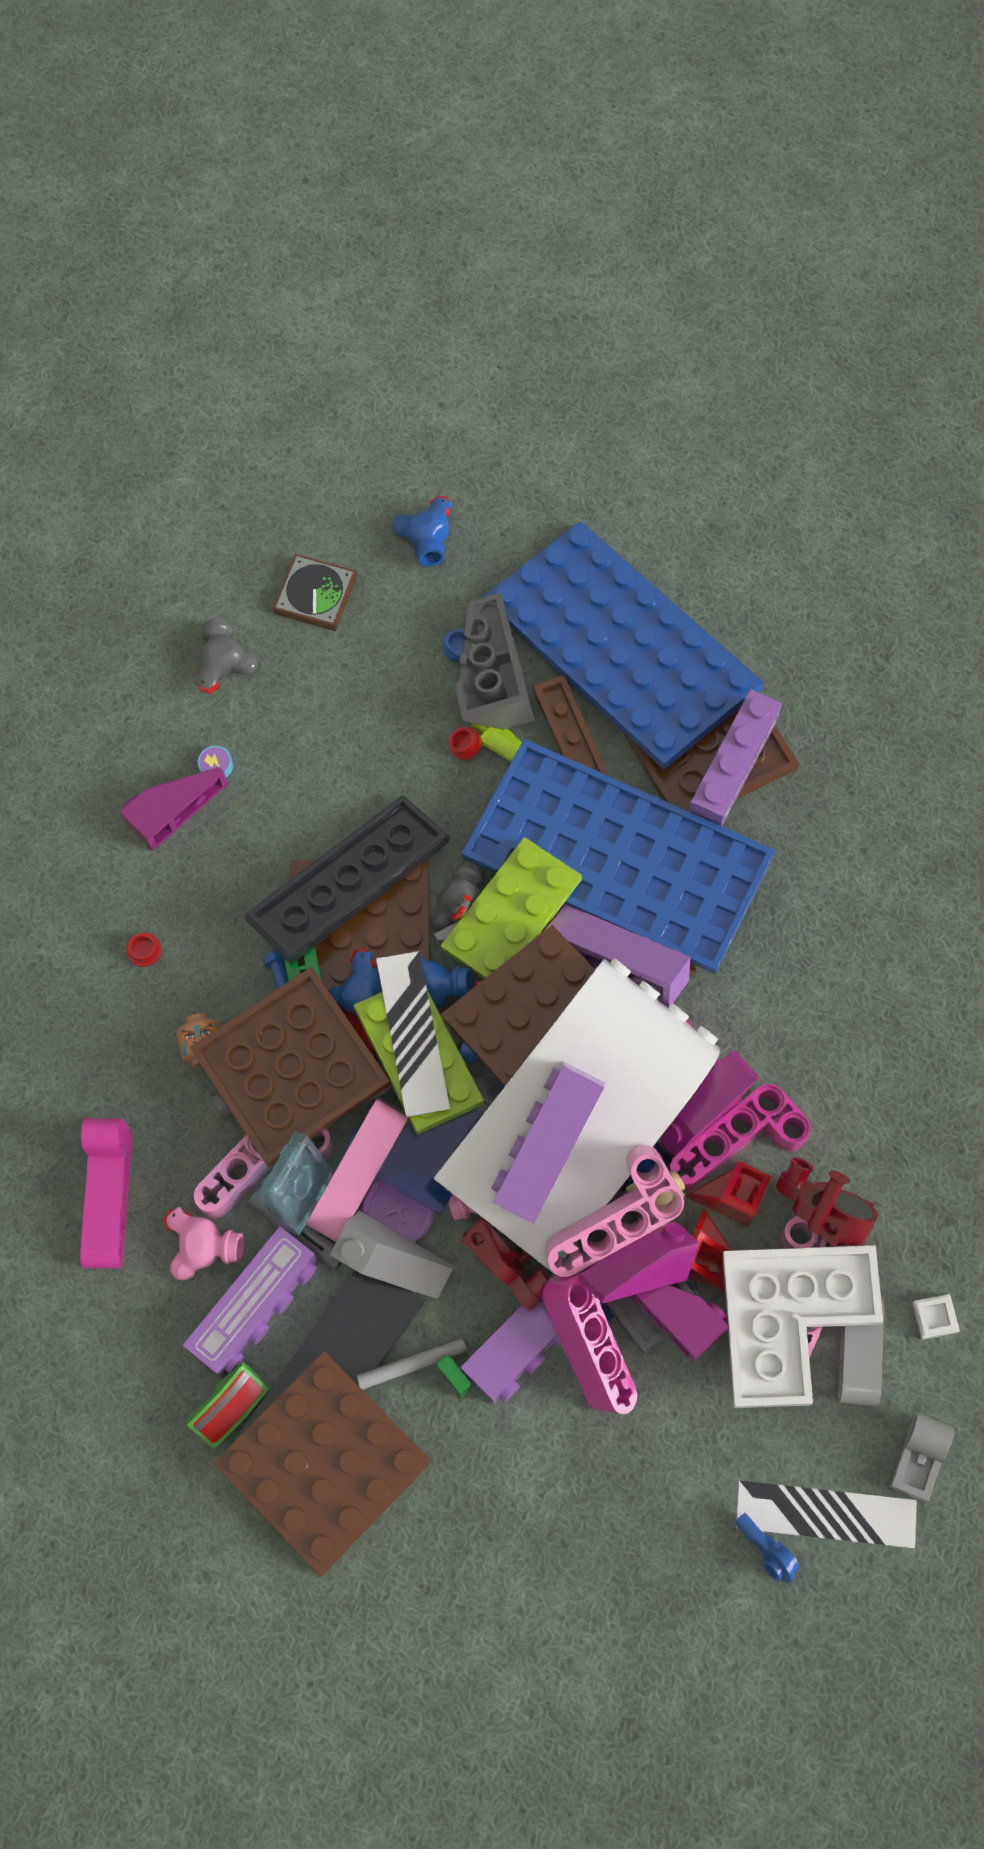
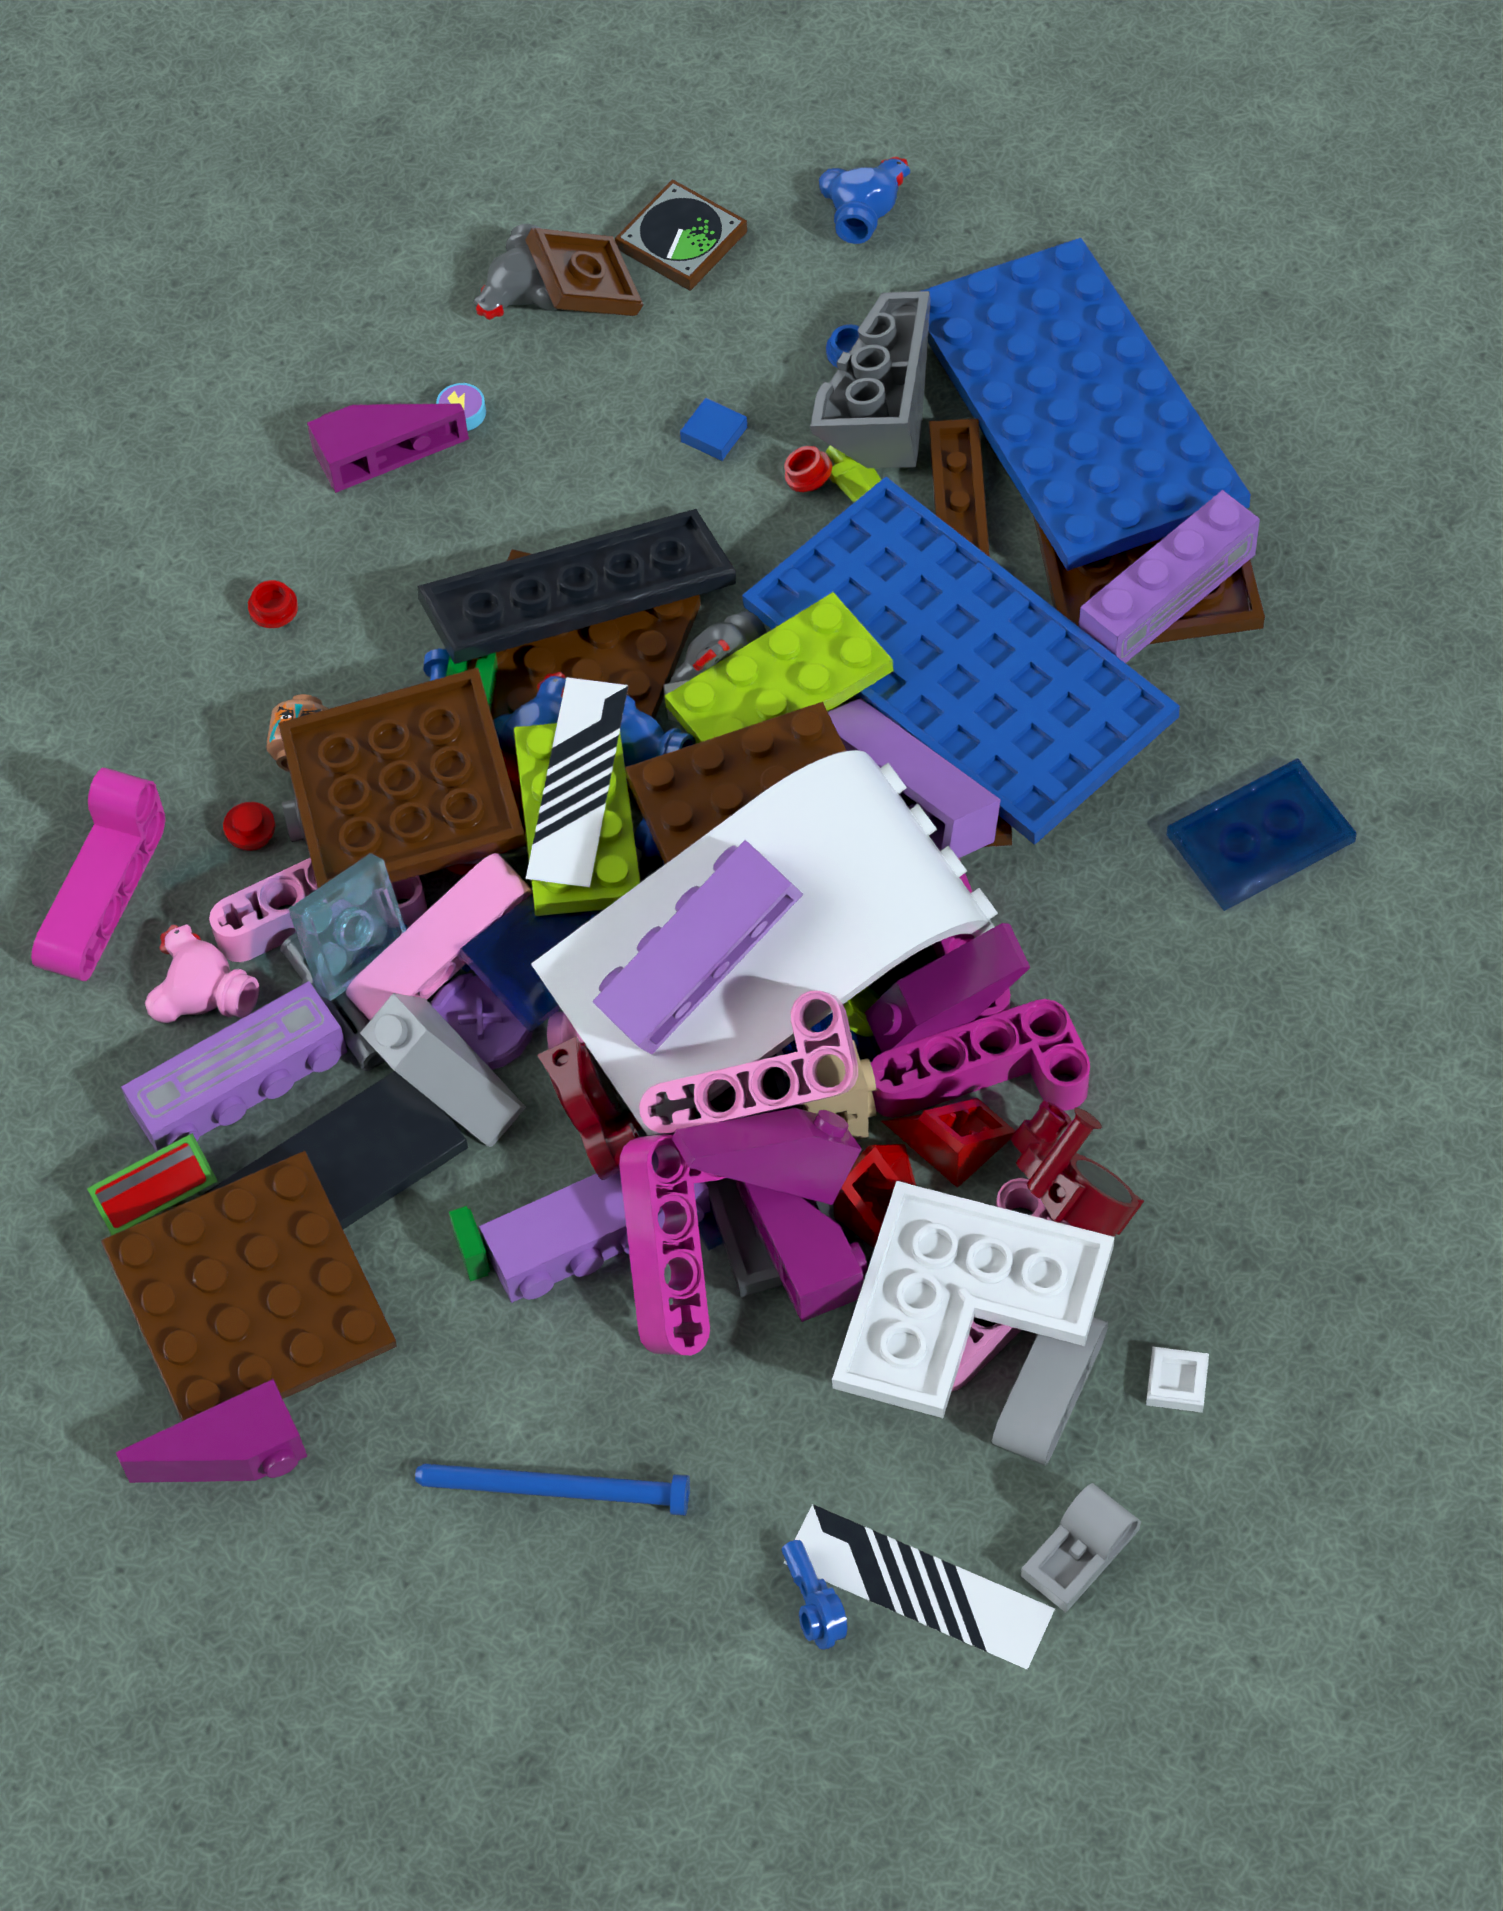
camera: 20 degrees right, 10 degrees down
(190, 1118) = (249, 825): none -> red plate
(263, 641) = (584, 272): none -> reddish brown tile
(355, 1570) = (228, 1442): none -> magenta slope
(390, 730) = (713, 429): none -> blue tile
(410, 1364) = (411, 1210): light grey bar -> none
(574, 1526) = (559, 1485): none -> blue bar
(848, 916) = (1261, 834): none -> clear blue tile

